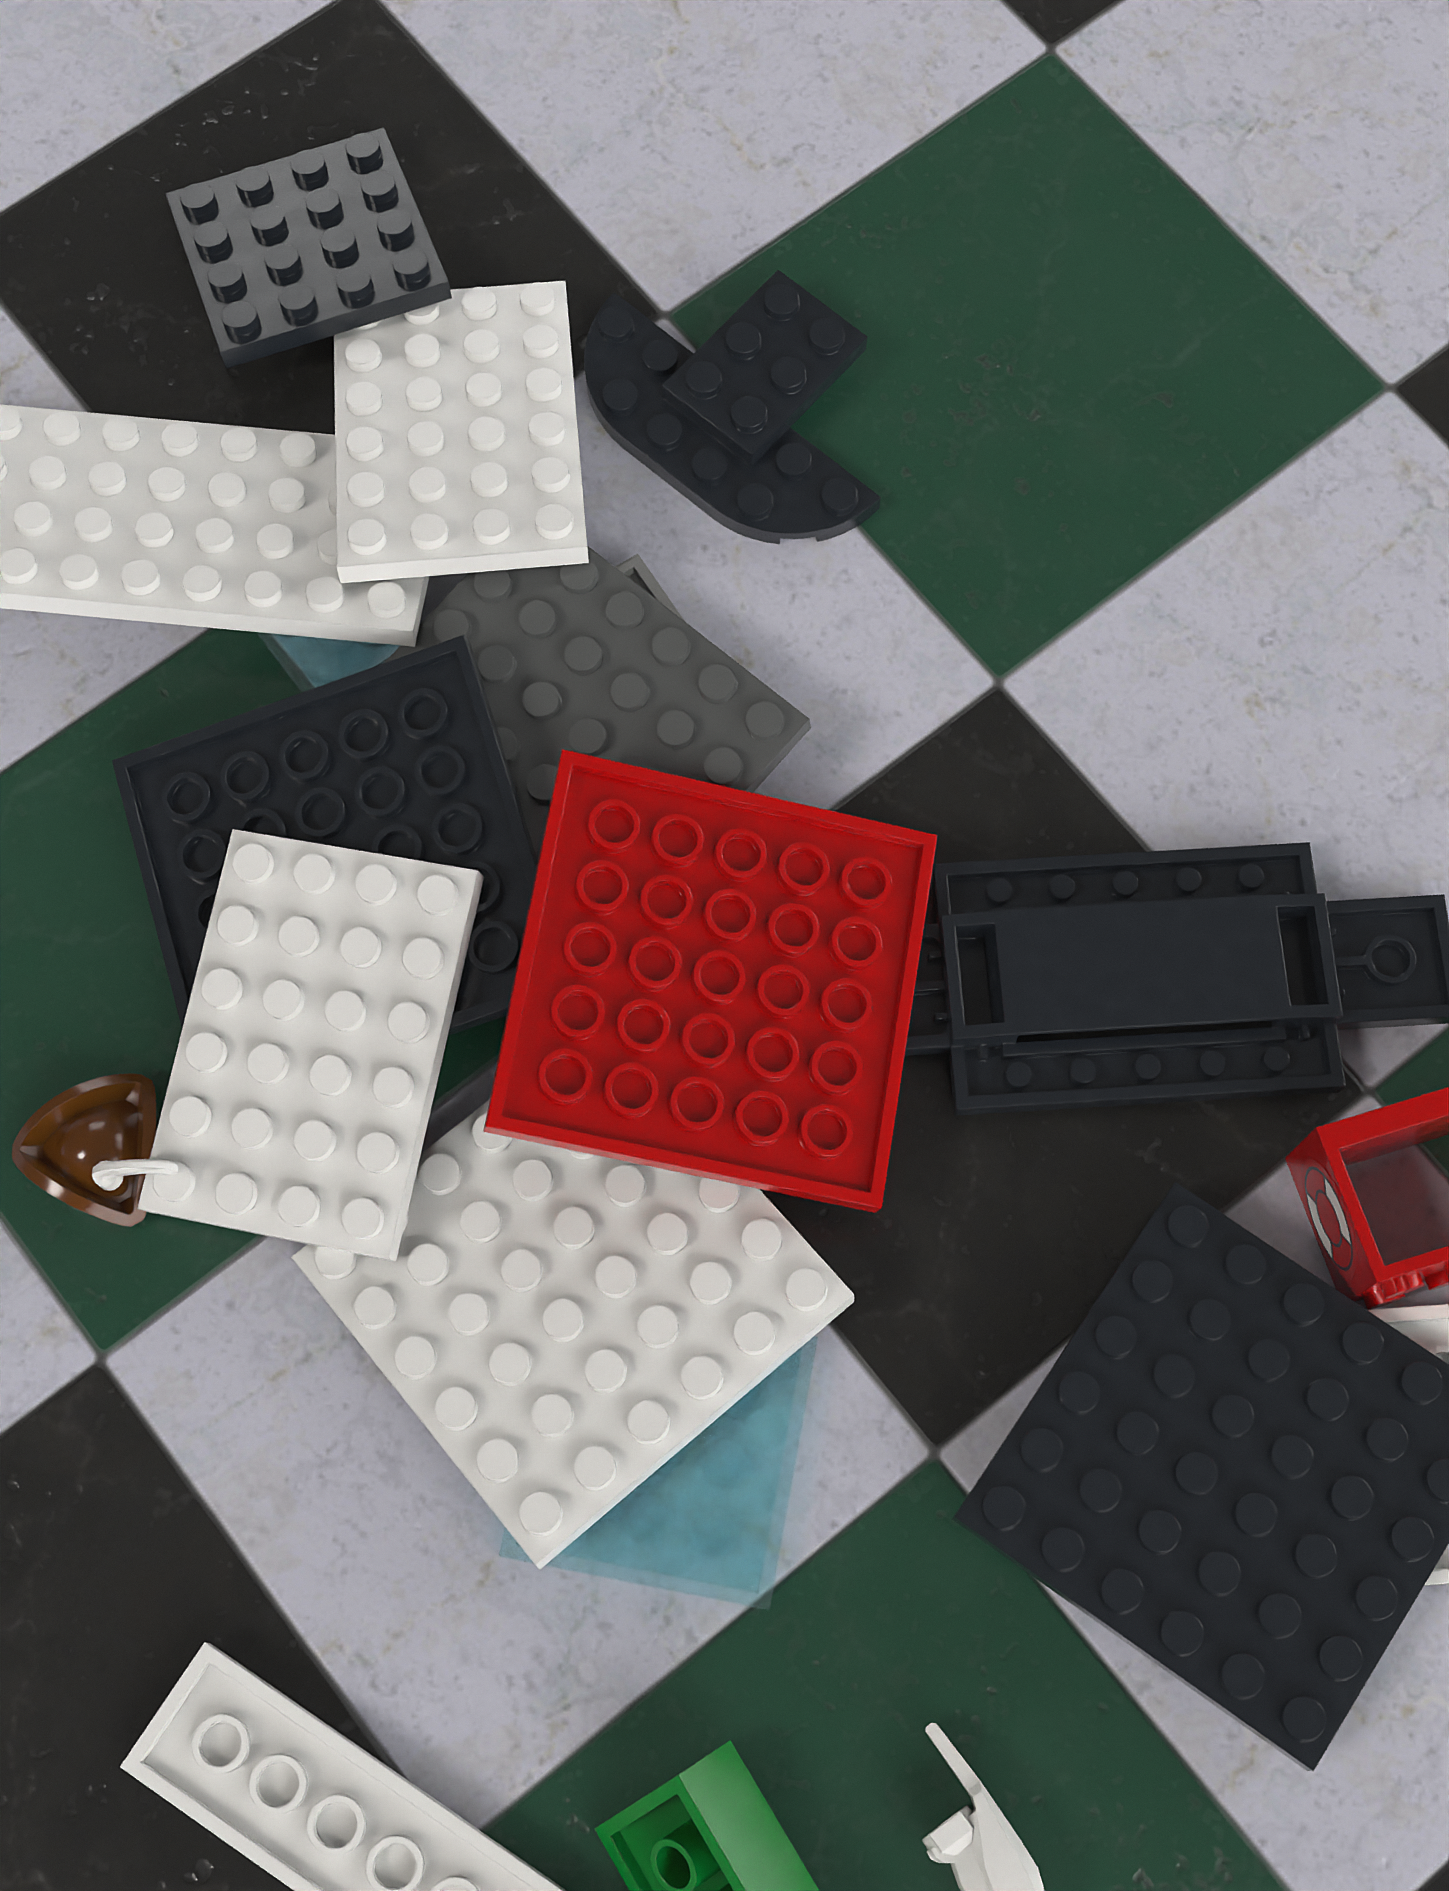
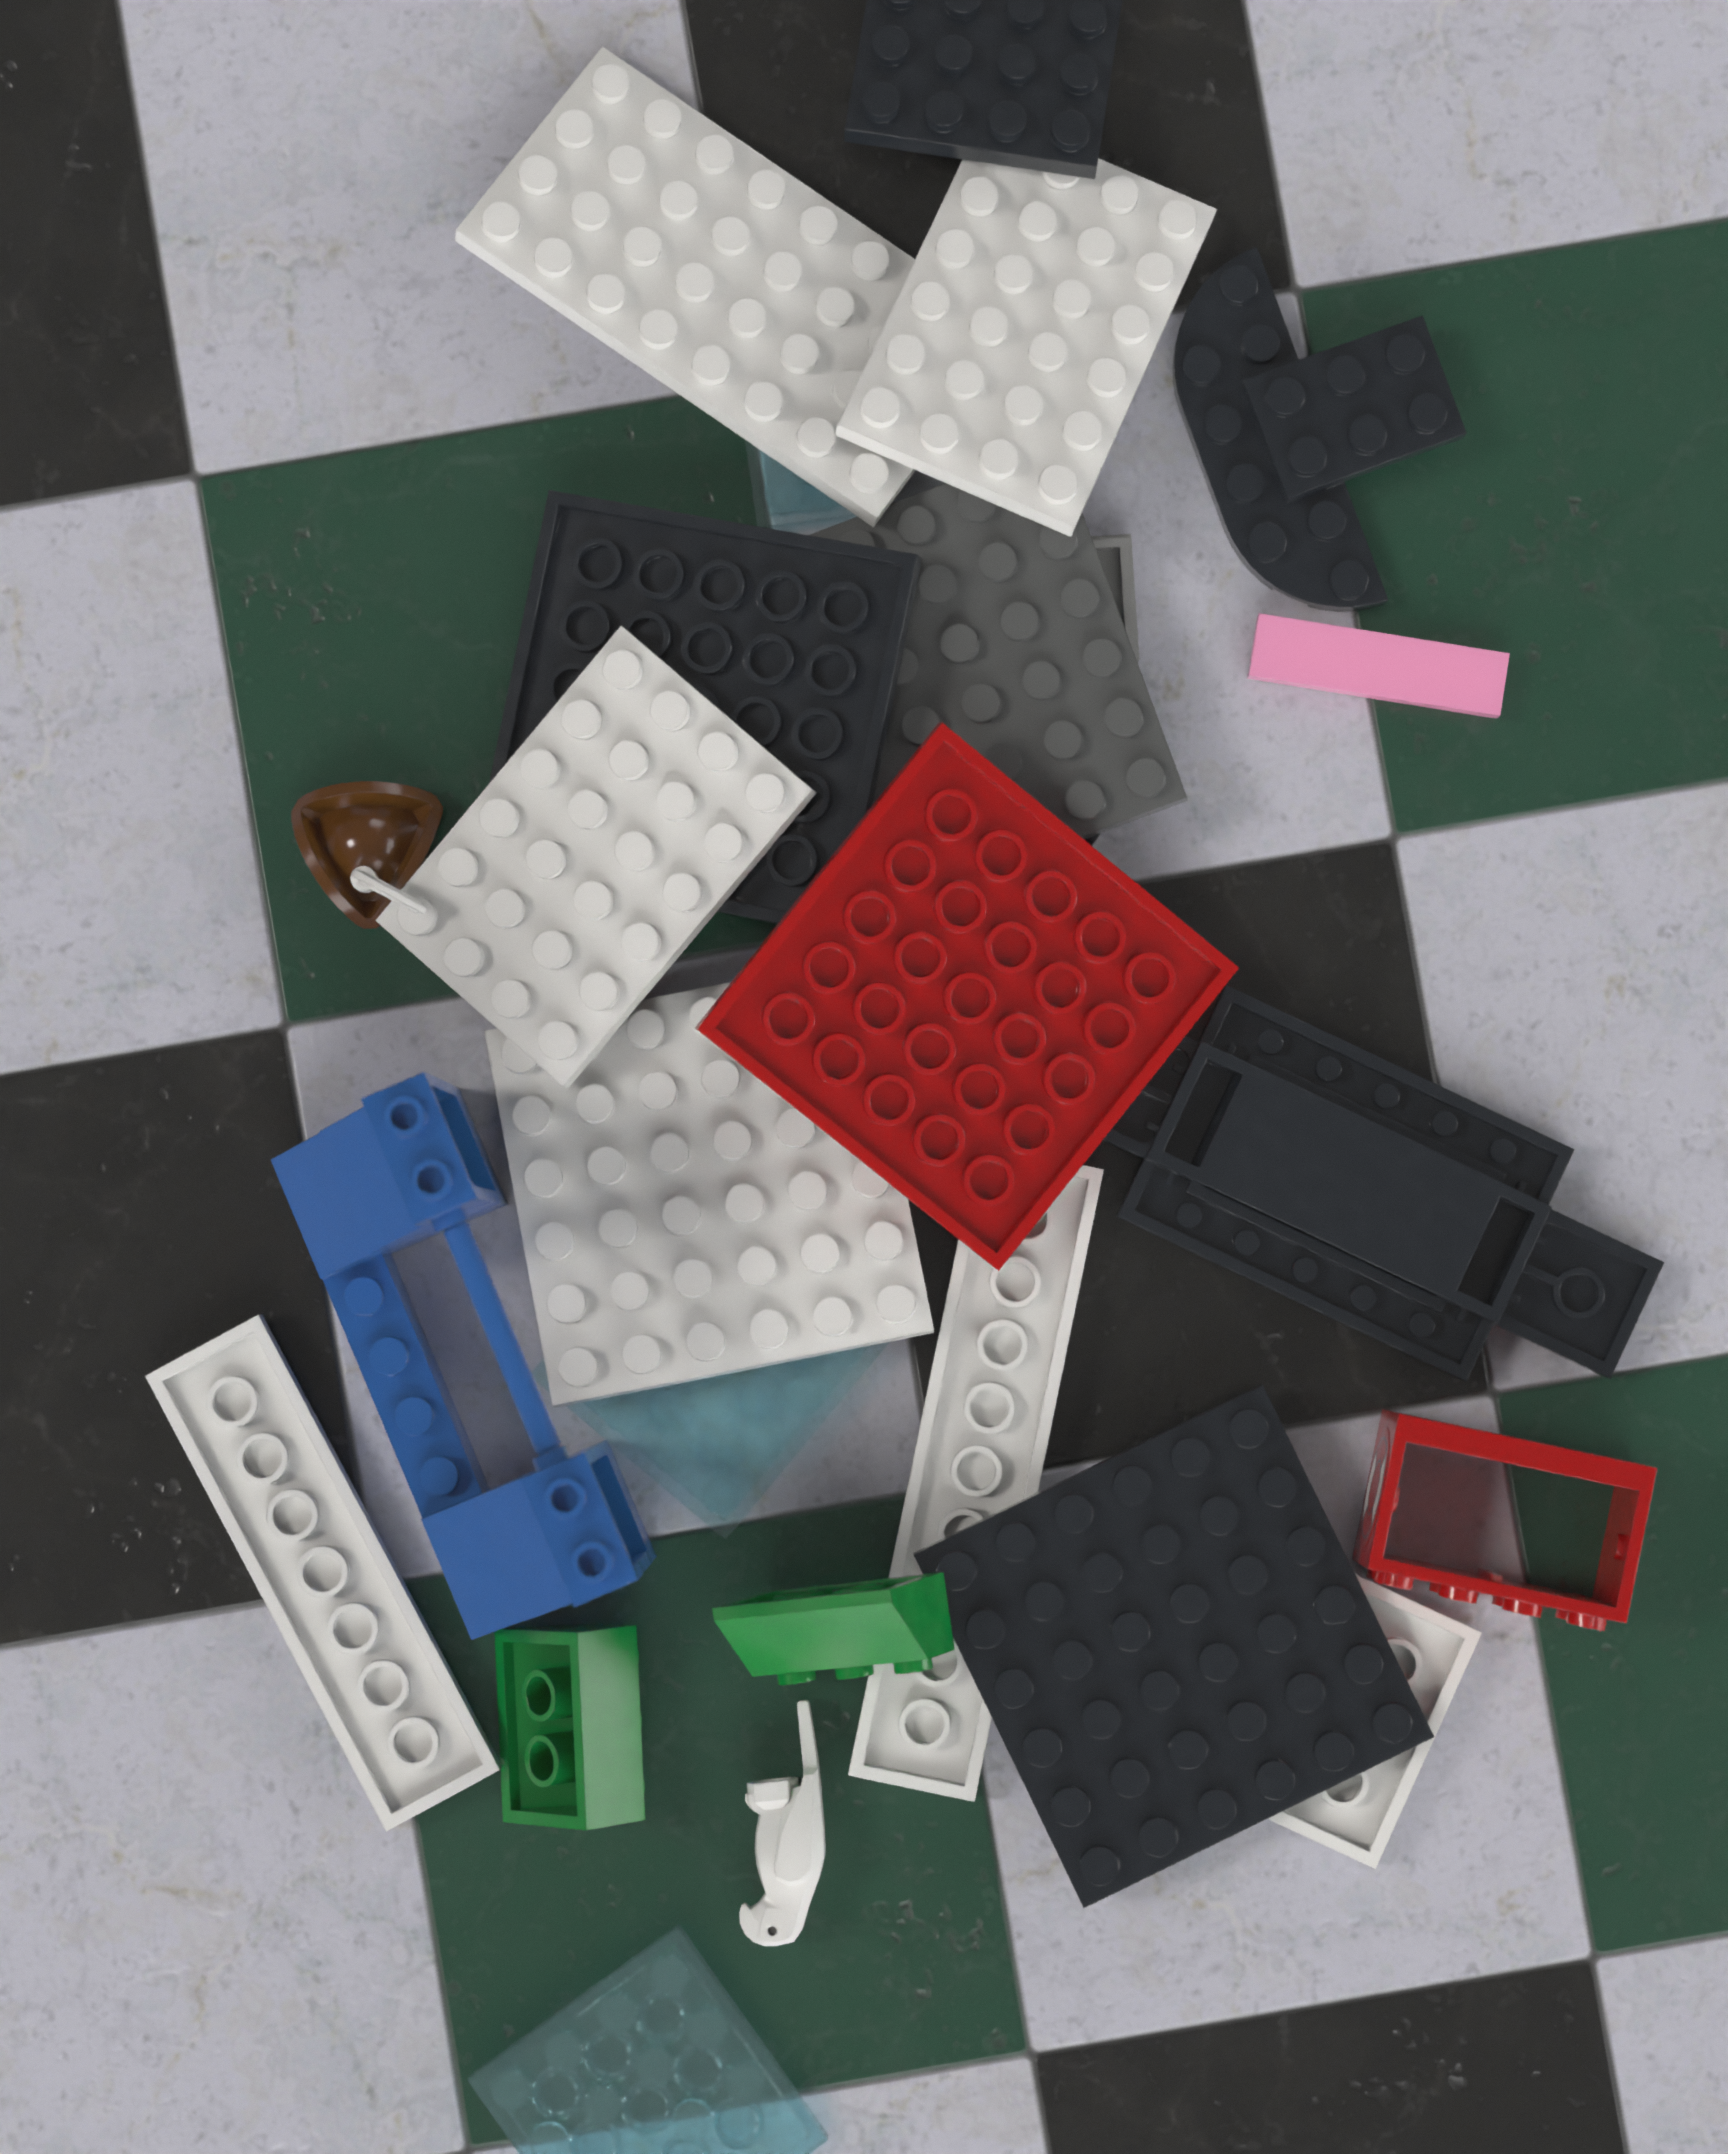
camera: 35 degrees right, 15 degrees up
(259, 1445) = (378, 1186): none -> blue brick
(902, 554) = (1378, 666): none -> bright pink tile
(928, 1627) = (840, 1628): none -> green slope
(955, 1395) = (973, 1456): none -> white plate

